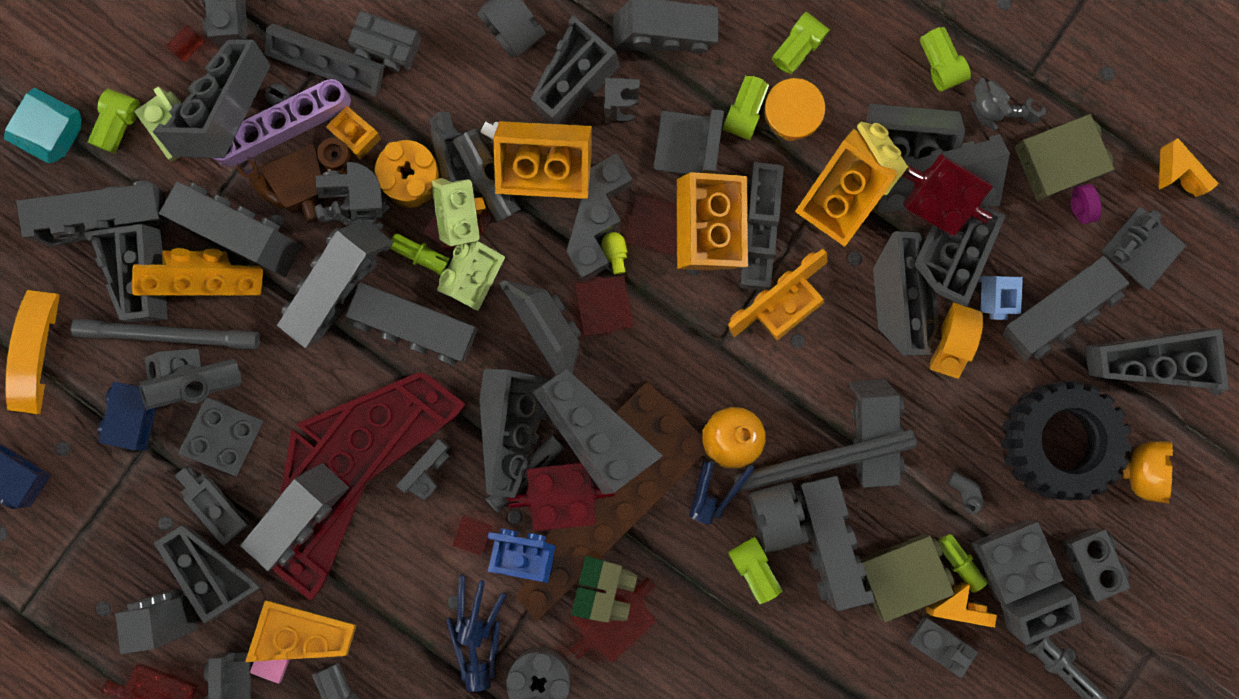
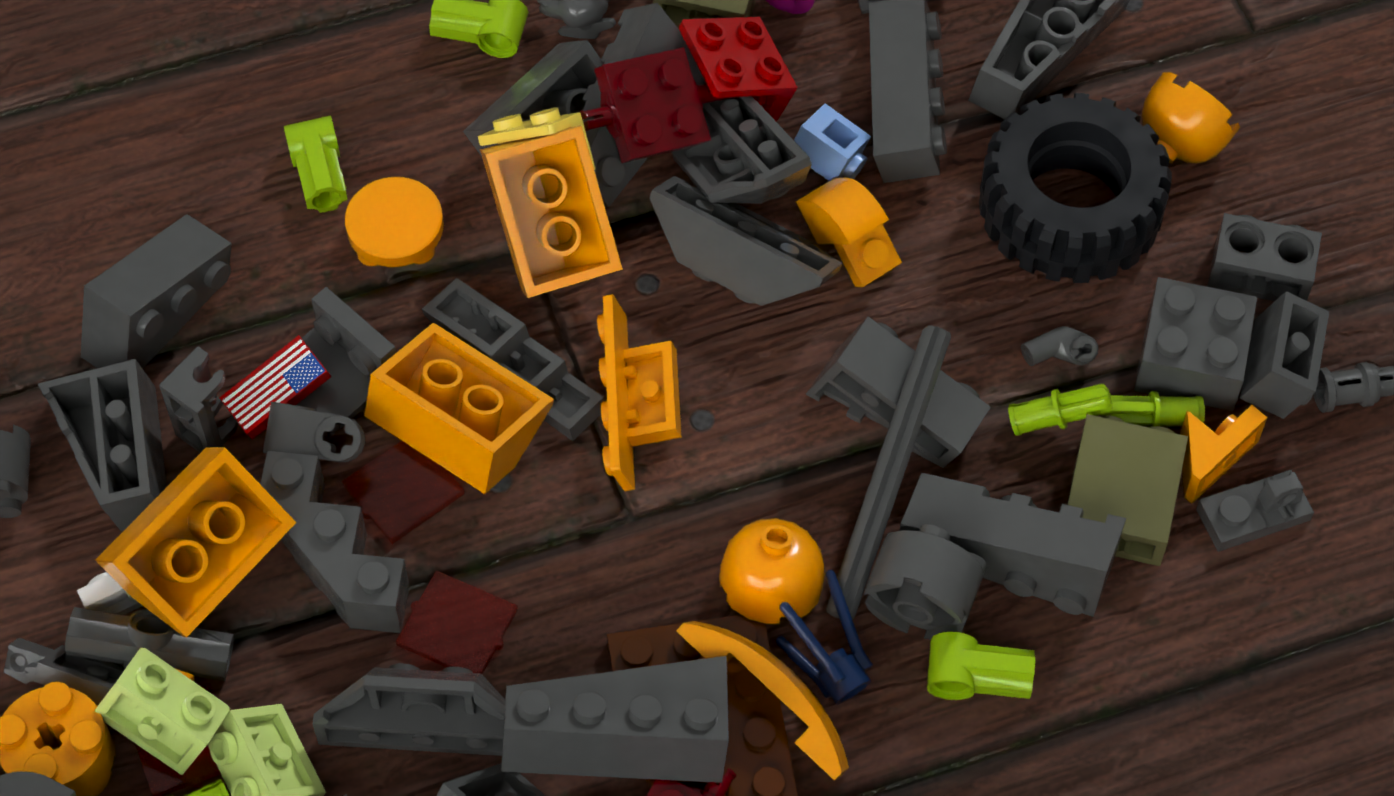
camera: 50 degrees left, 25 degrees down
(615, 251) = (392, 546): neon yellow cylinder -> none
(643, 162) = (307, 432): none -> dark grey piece
(659, 125) = (281, 379): none -> tile
(673, 444) = (821, 738): none -> light orange slope
(744, 113) = (344, 271): lime piece -> none
(926, 517) = (1059, 409): none -> lime axle
(1013, 216) = (740, 60): none -> red bracket

